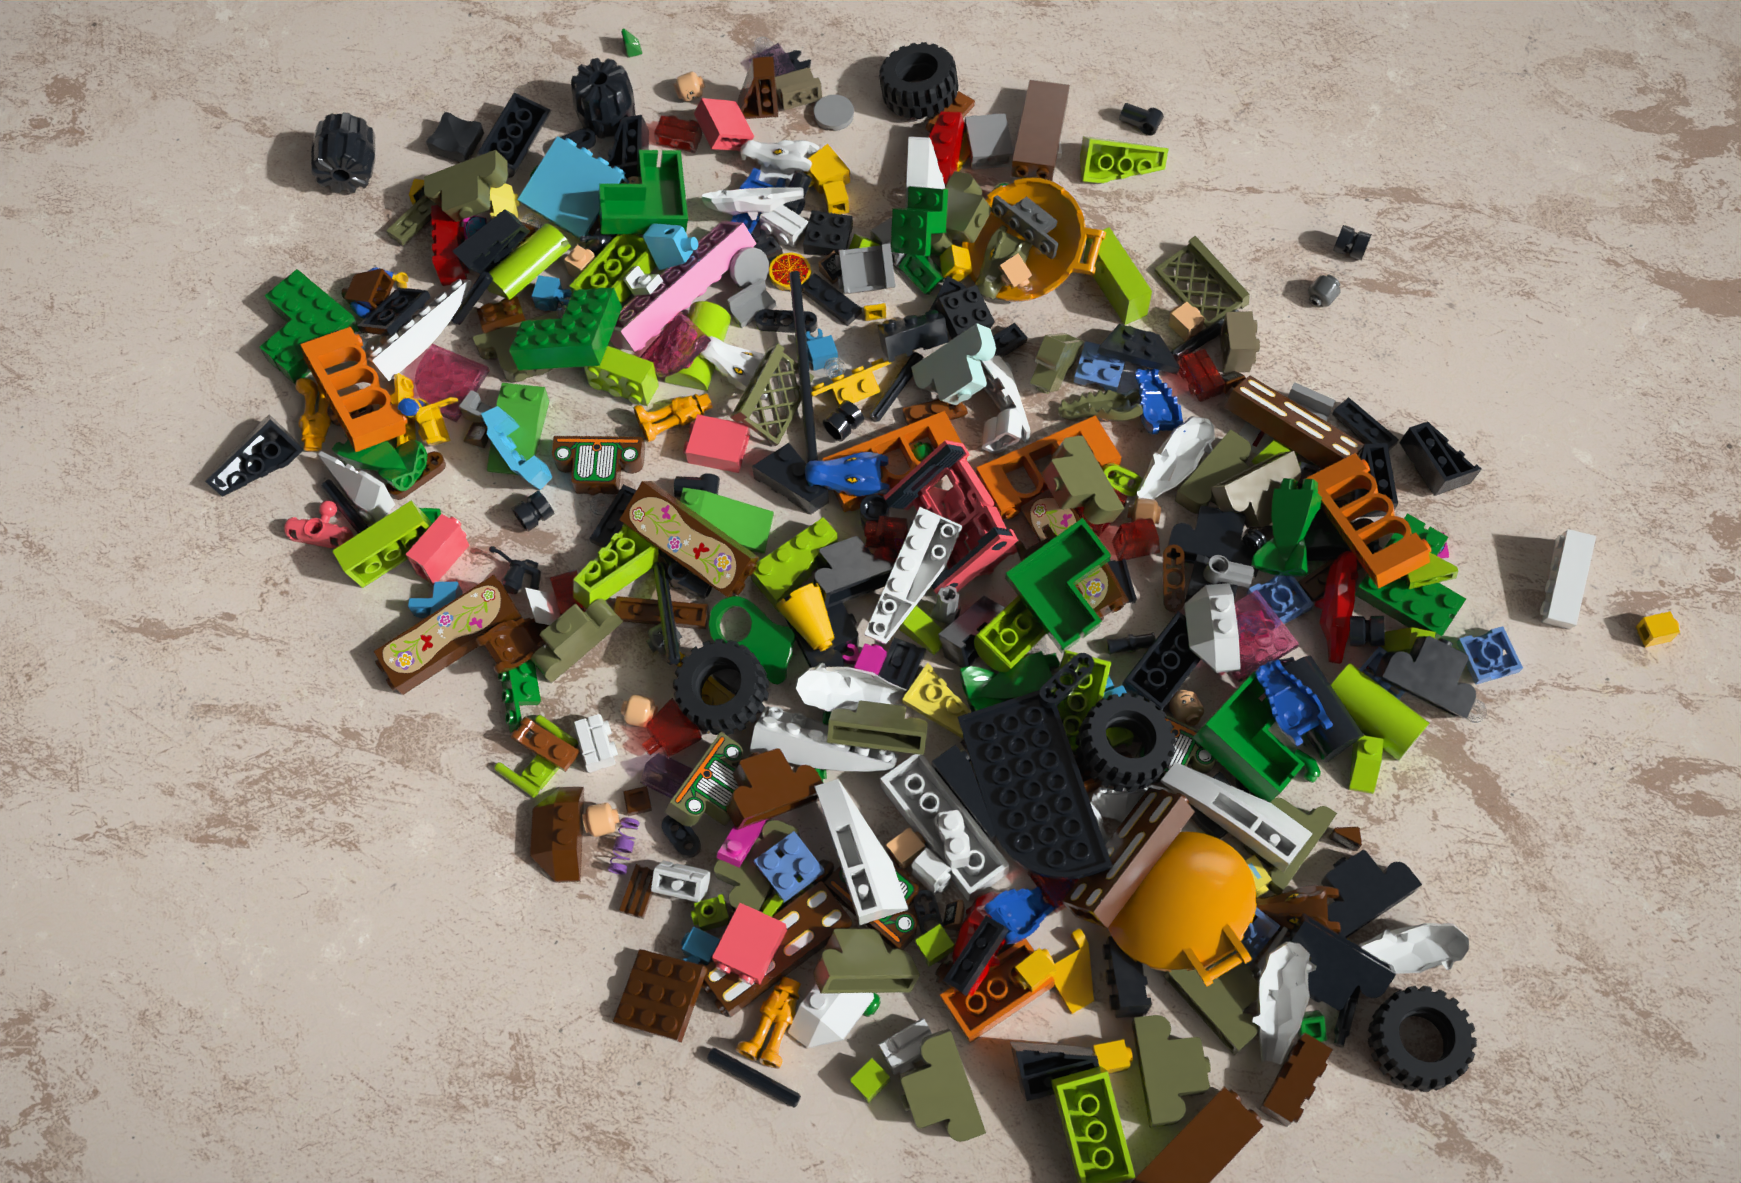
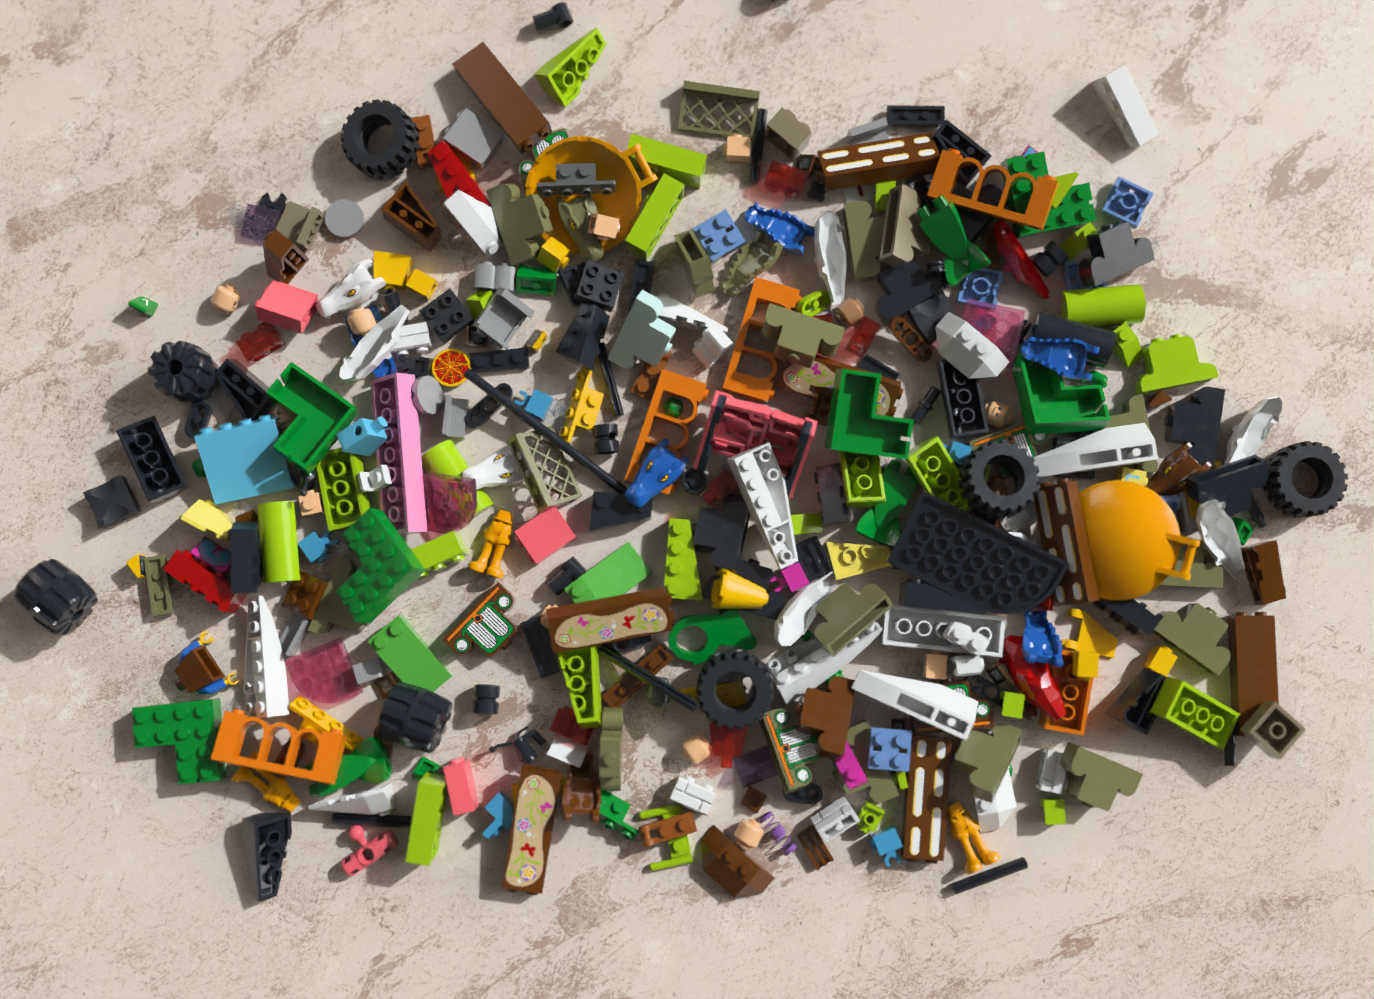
camera: 55 degrees left, 20 degrees up
(394, 311) = (236, 668): black plate -> none
(428, 416) = (350, 713): yellow piece -> none
(459, 336) = (294, 634): none -> light grey panel
(465, 187) = (179, 536): olive brick -> none
(466, 464) = (414, 717): none -> black wheel
(472, 297) = (274, 603): black axle -> none
(499, 427) = (430, 682): medium azure plate -> none
(660, 995) = (895, 891): reddish brown plate -> none
(749, 944) = (918, 815): coral brick -> none
(762, 176) = (361, 321): none -> light nougat head
(880, 148) = (412, 218): none -> reddish brown wedge
(922, 217) = (506, 252): green bracket -> none
(946, 607) = (802, 497): light grey piece -> none
(976, 955) = (1051, 692): black plate -> none
(1063, 305) = (655, 217): none -> lime brick
(1064, 690) = (935, 491): black beam -> none
(1139, 348) = (730, 200): black wing -> none
(1214, 411) = (812, 194): none -> black plate
(1229, 572) = (943, 305): light grey piece -> none
(1324, 290) = (798, 39): dark grey head -> none
(1393, 823) = (1172, 365): none -> lime brick
(1437, 460) = (980, 98): black wedge -> none
(1658, 629) = (1201, 88): yellow brick -> none

